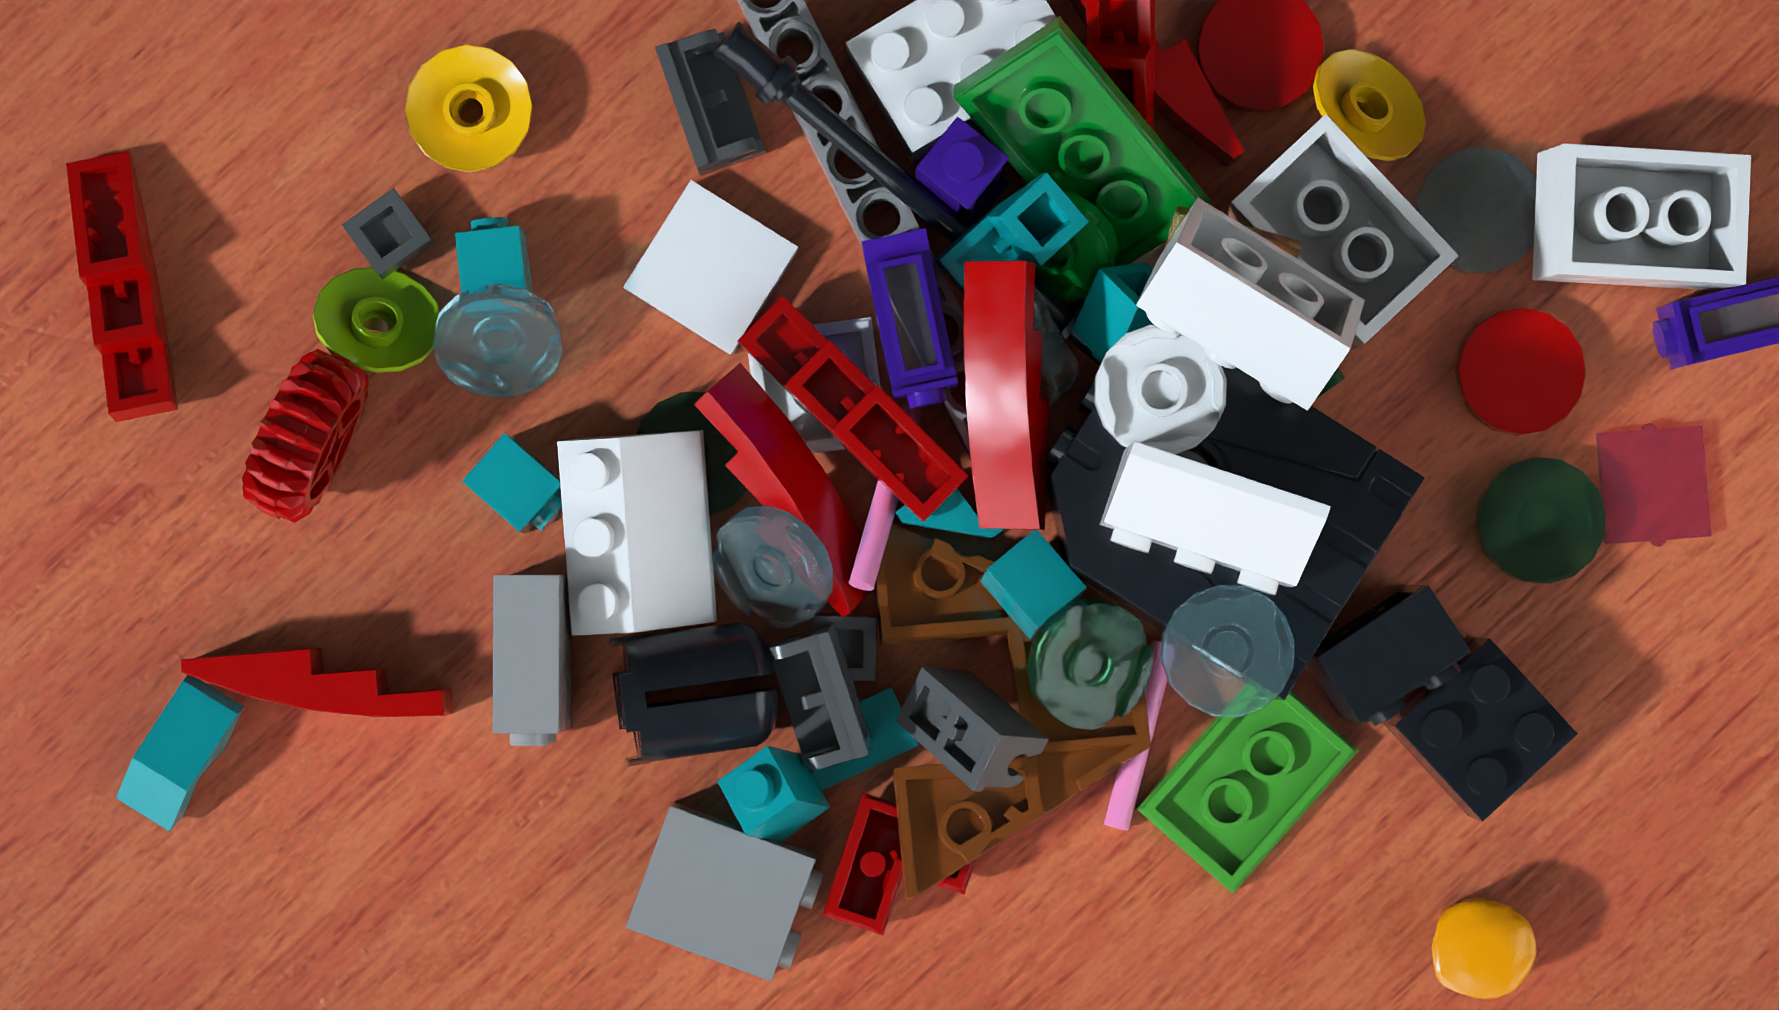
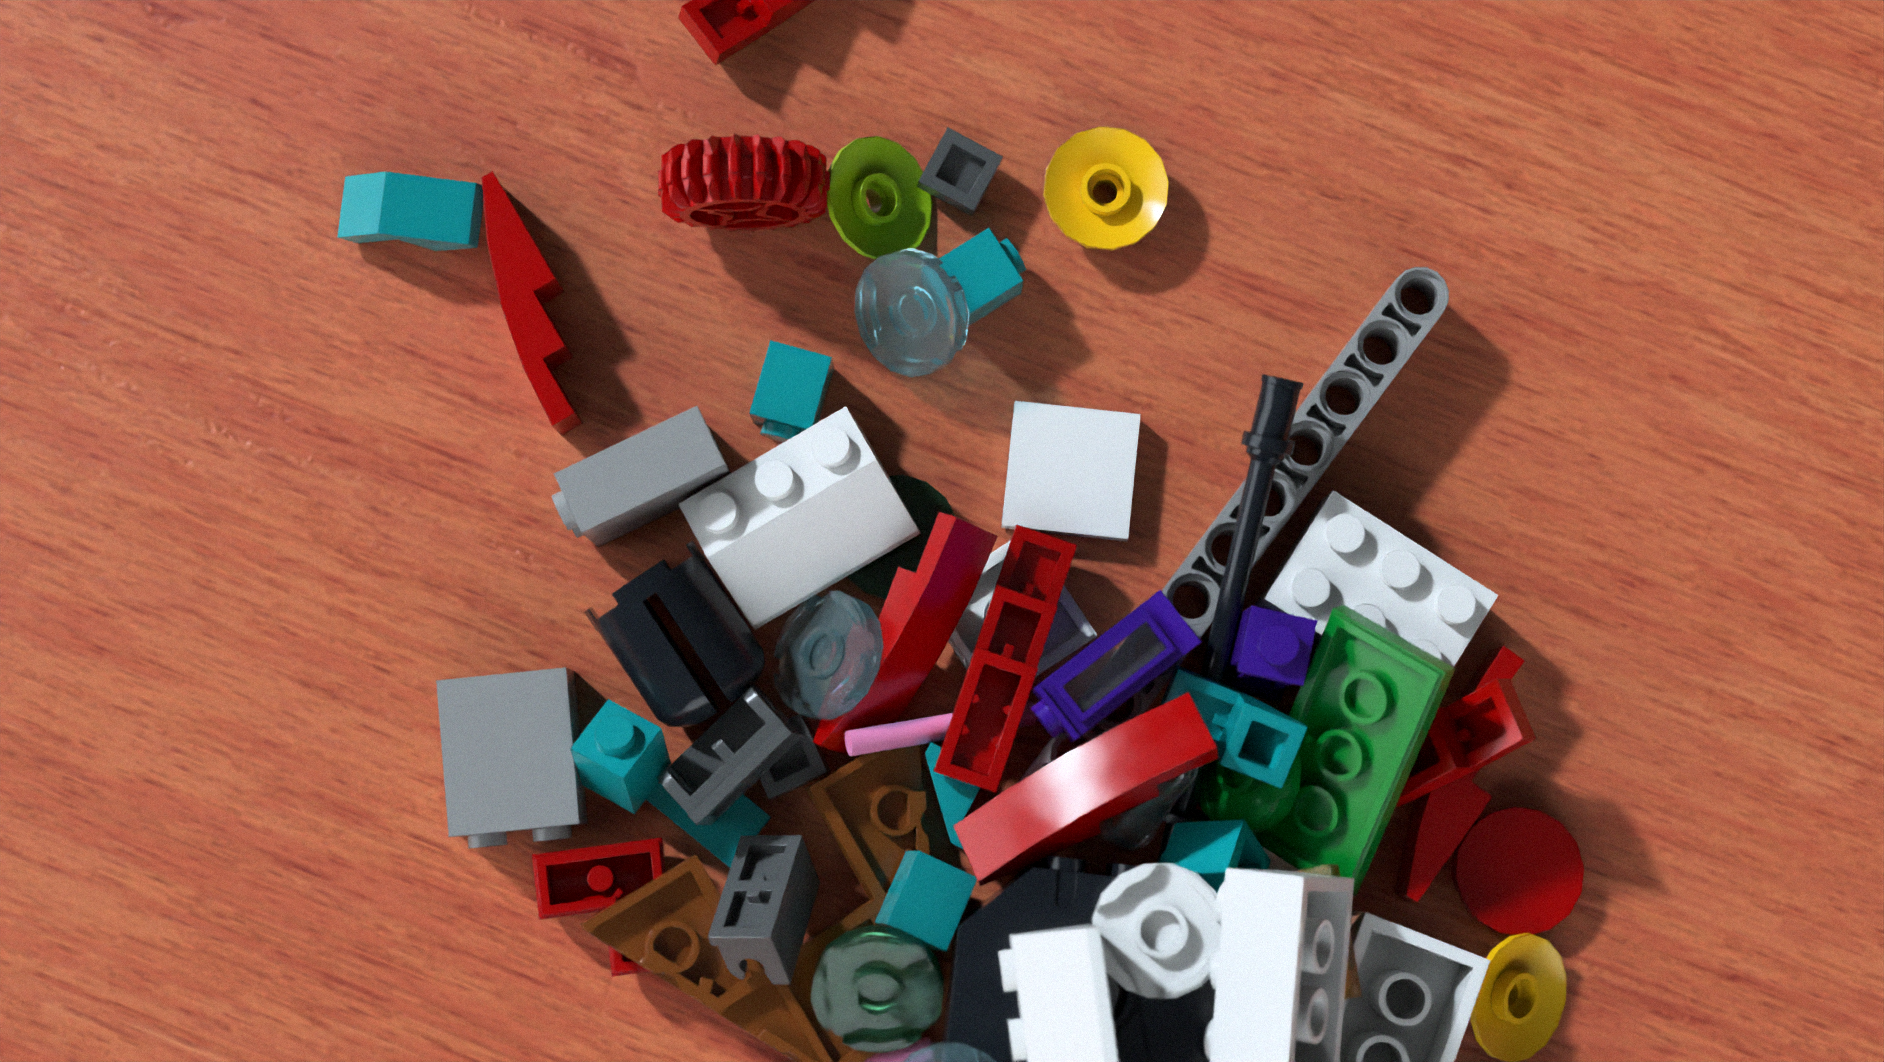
camera: 65 degrees right, 5 degrees down
(710, 102) = (1216, 397): dark grey hinge -> none

